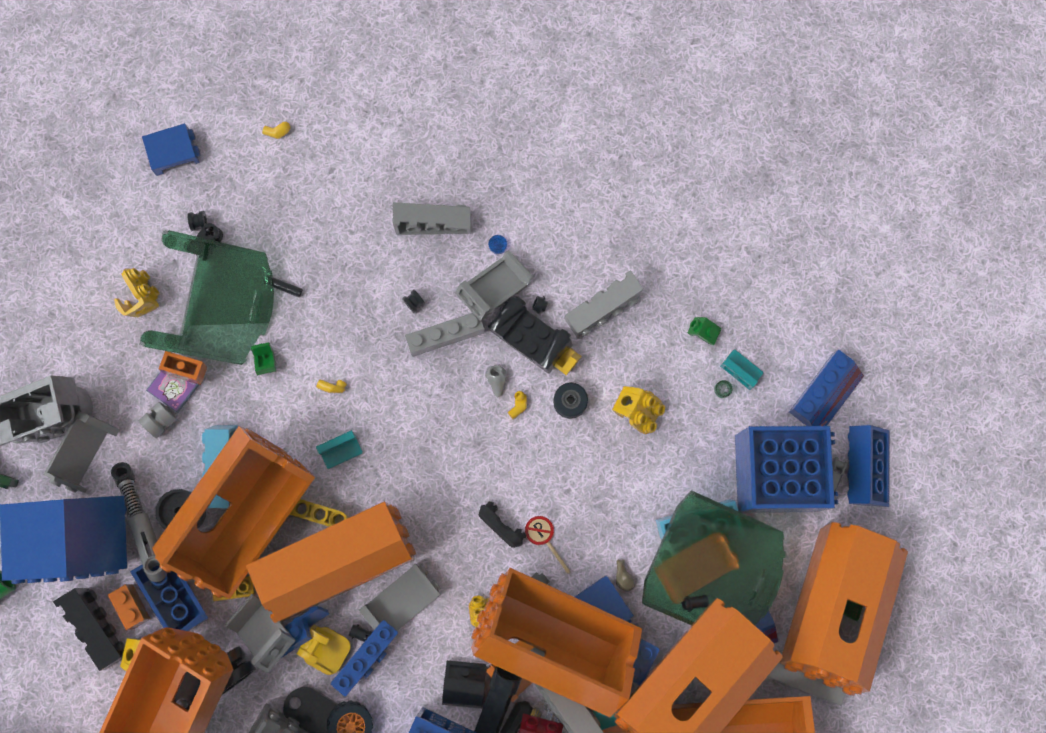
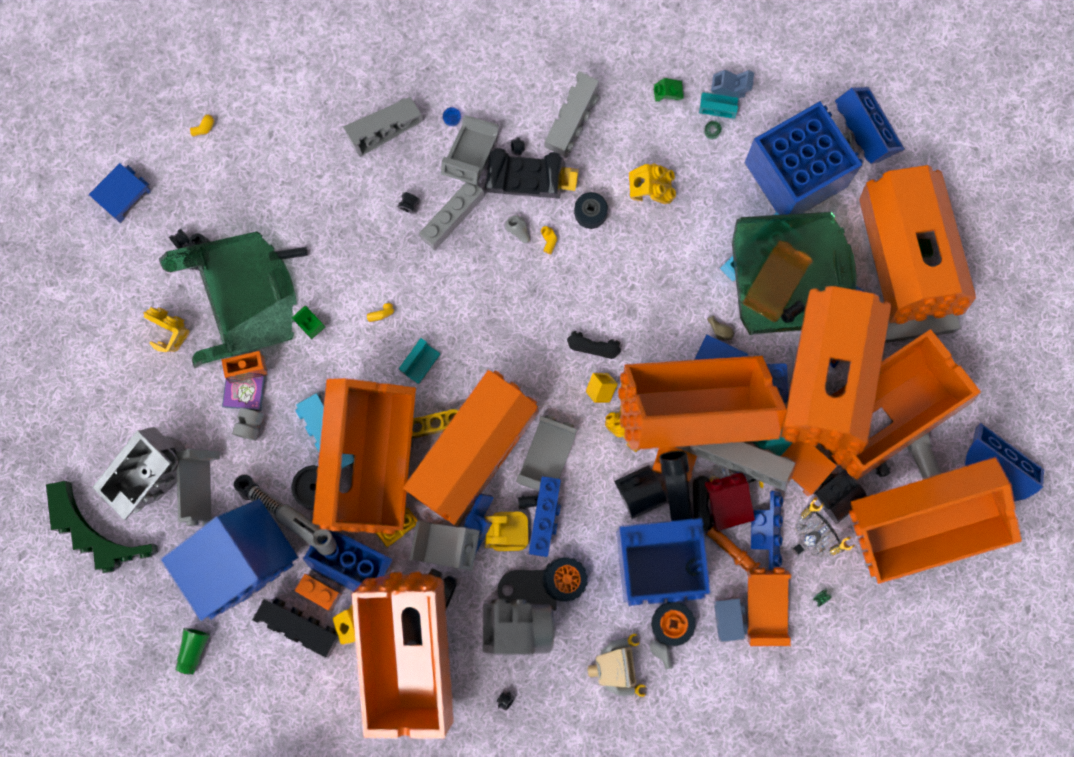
camera: 20 degrees left, 0 degrees up
(485, 567) = (601, 387): none -> yellow panel
(539, 532) = (629, 333): piece -> none
(764, 358) = (732, 85): none -> sand blue brick
(827, 391) = (799, 79): blue slope -> none

